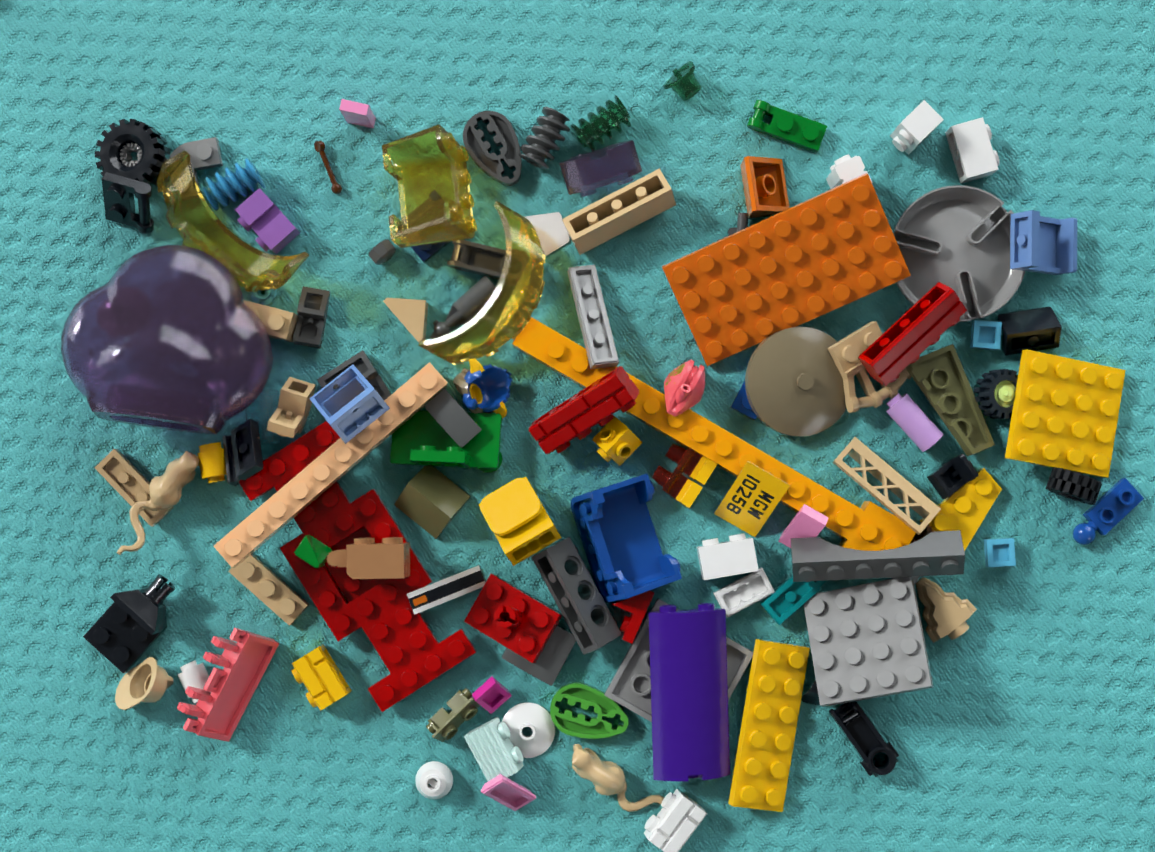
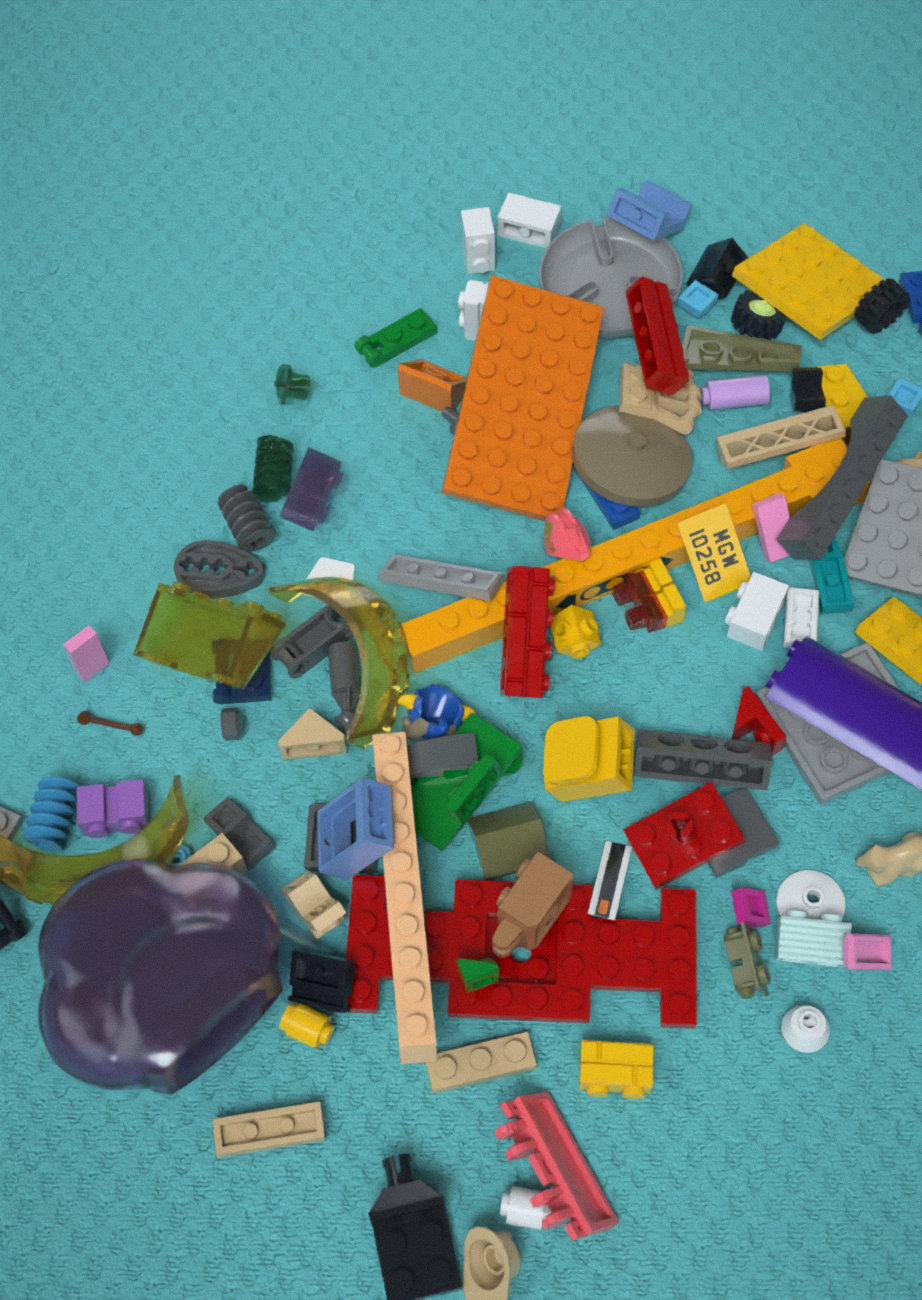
camera: 55 degrees left, 25 degrees down
(164, 493) = (300, 1095): tan animal -> none
(578, 725) = (837, 846): bright green piece -> none
(619, 211) = (362, 500): tan brick -> none
(622, 539) = (669, 691): blue windscreen -> none

